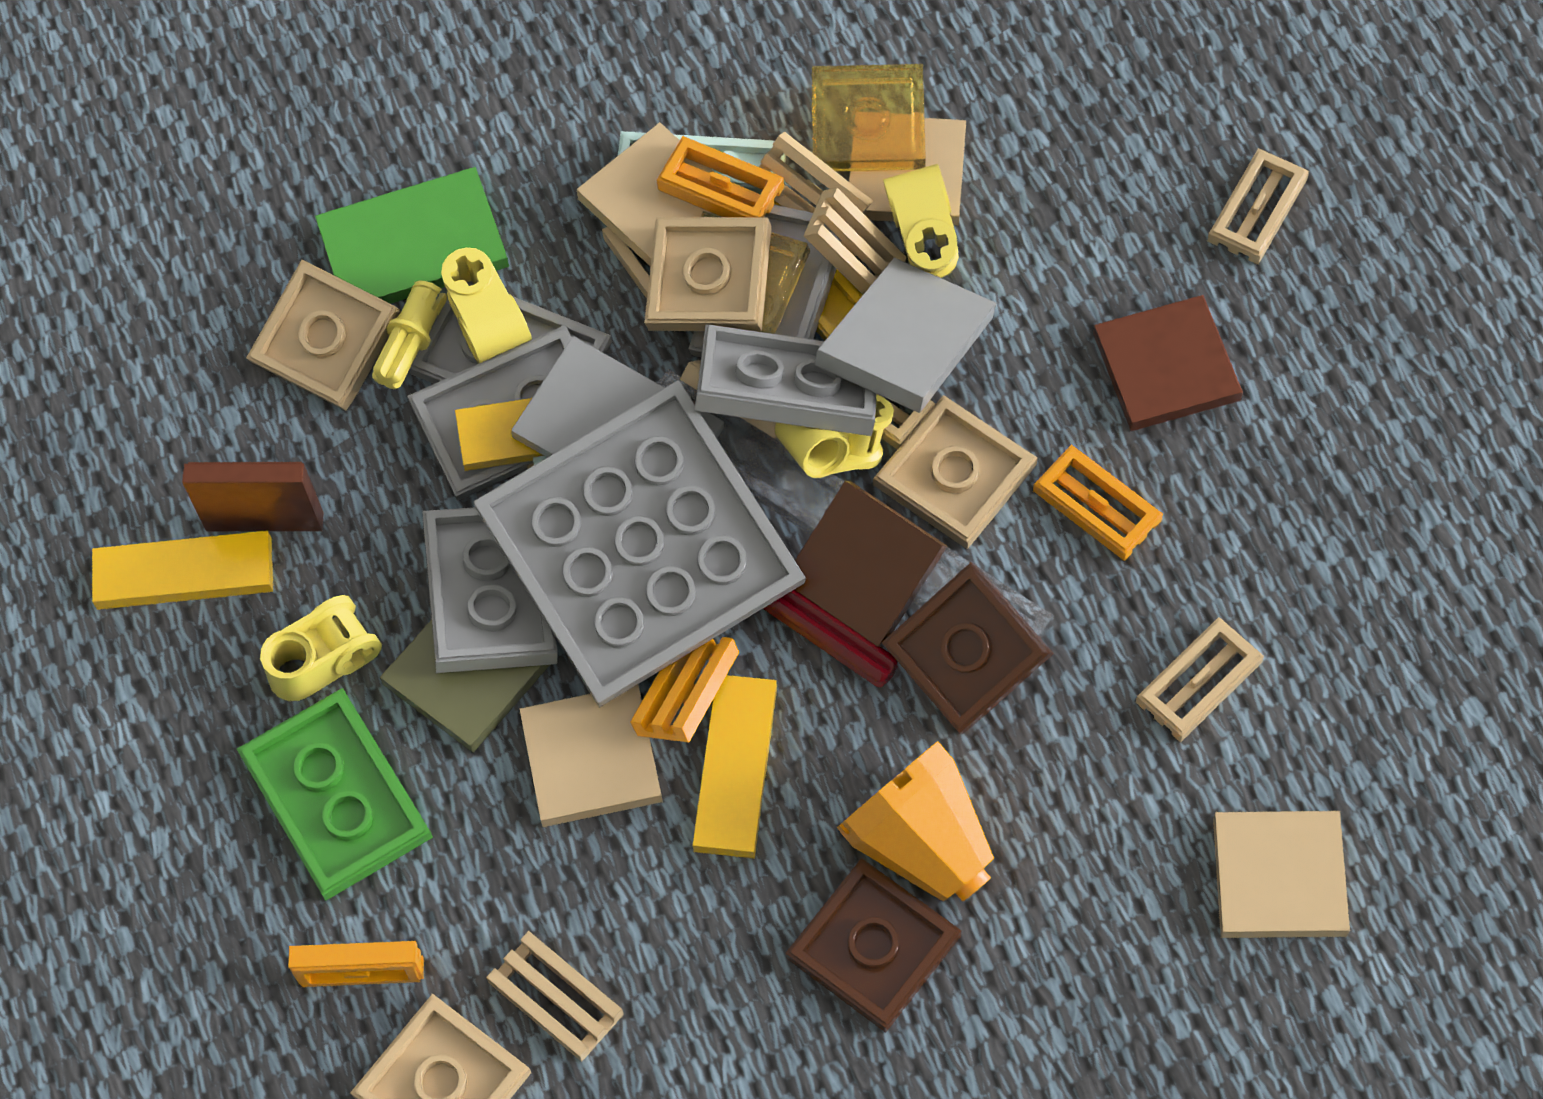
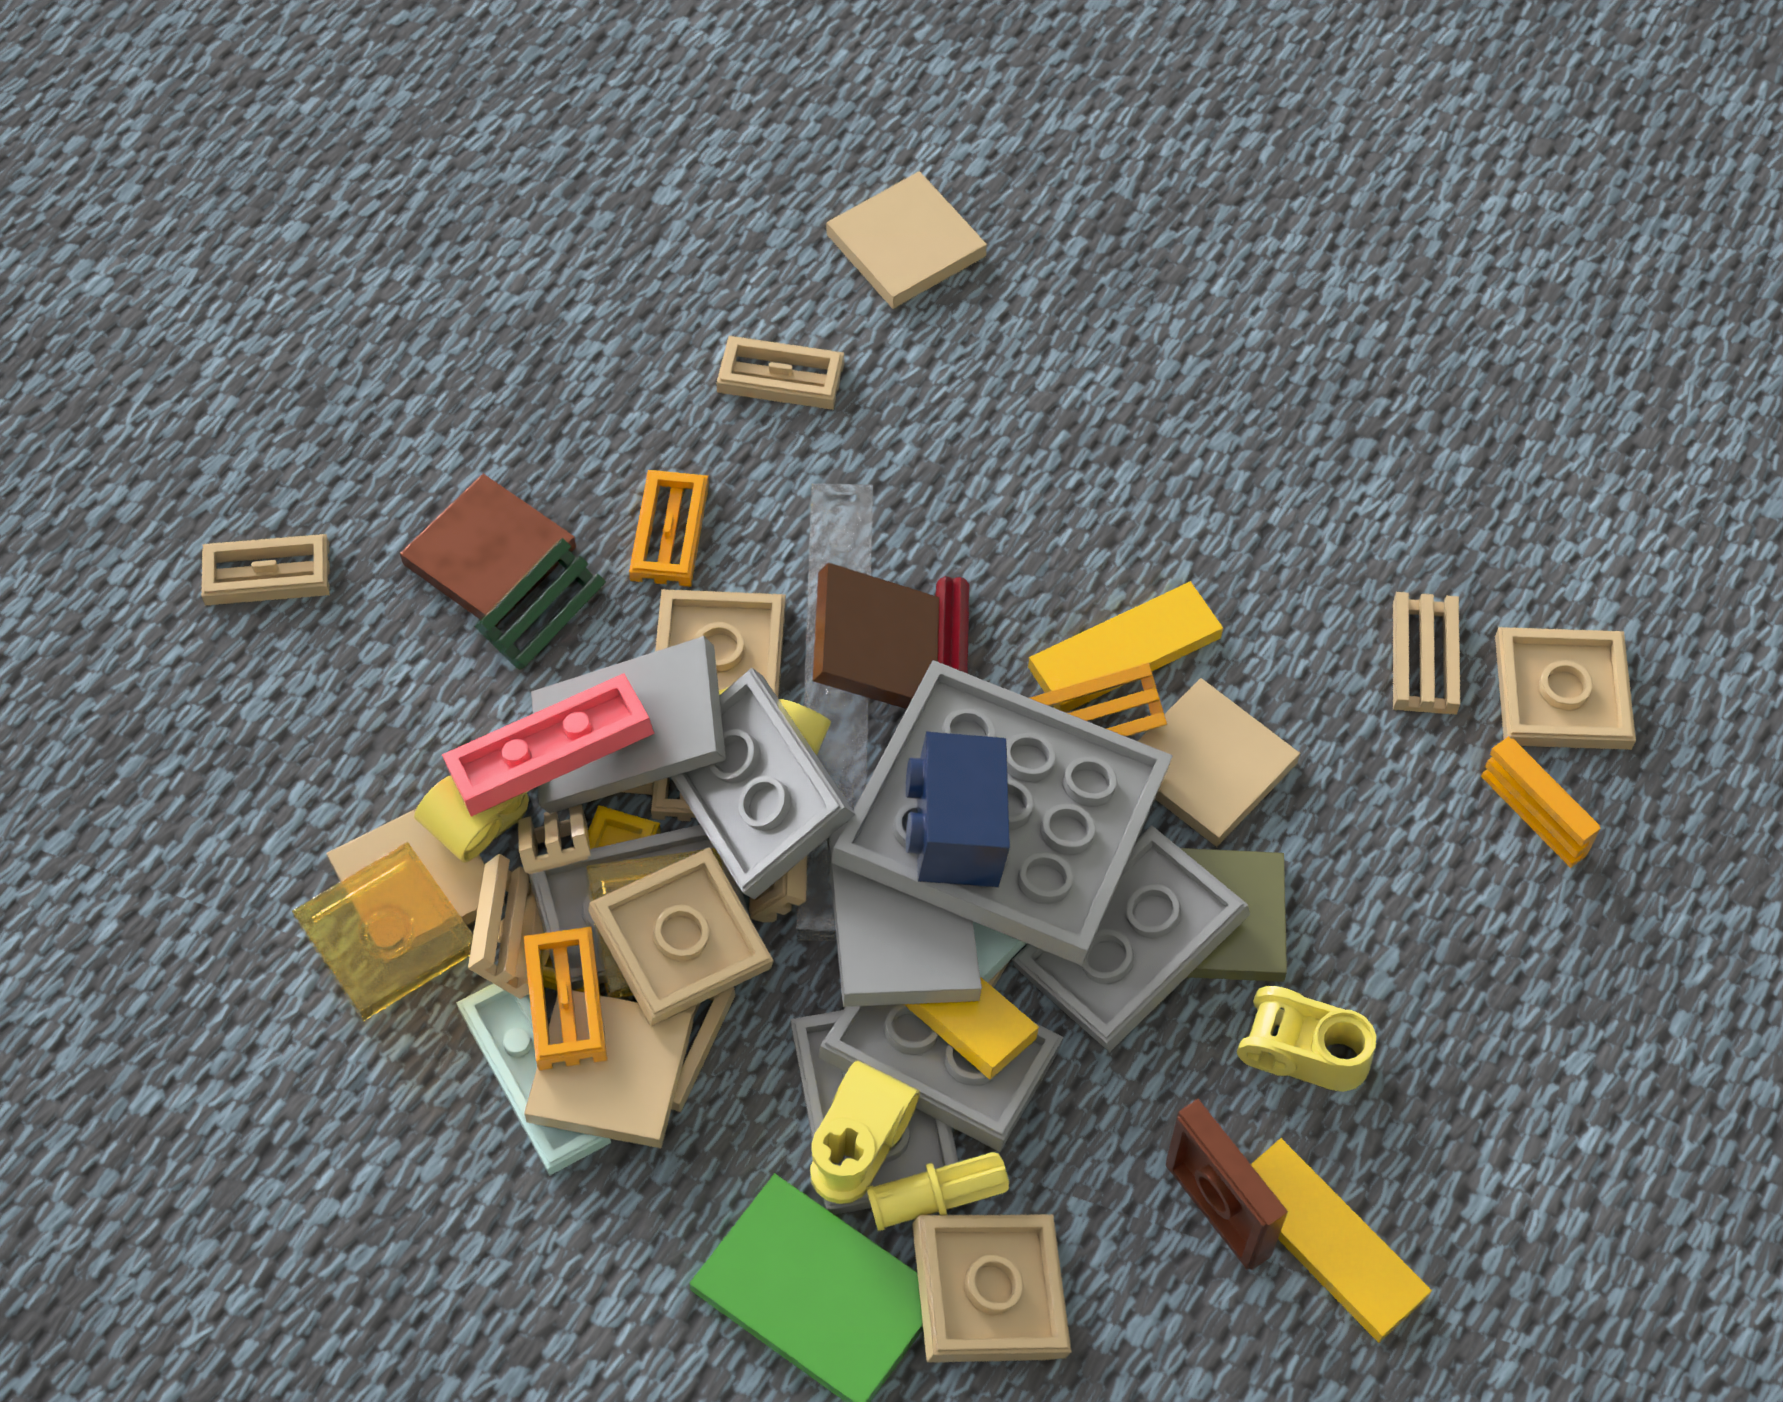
camera: 130 degrees left, 5 degrees down
(334, 794) = (1415, 943): bright green tile -> none
(637, 471) = (960, 809): none -> dark blue brick
(873, 944) = (1189, 463): reddish brown tile -> none
(912, 253) = (548, 744): none -> coral plate
(924, 828) = (1073, 472): light orange cone -> none
(967, 648) = (891, 523): reddish brown tile -> none
(1065, 327) = (575, 569): none -> dark green tile

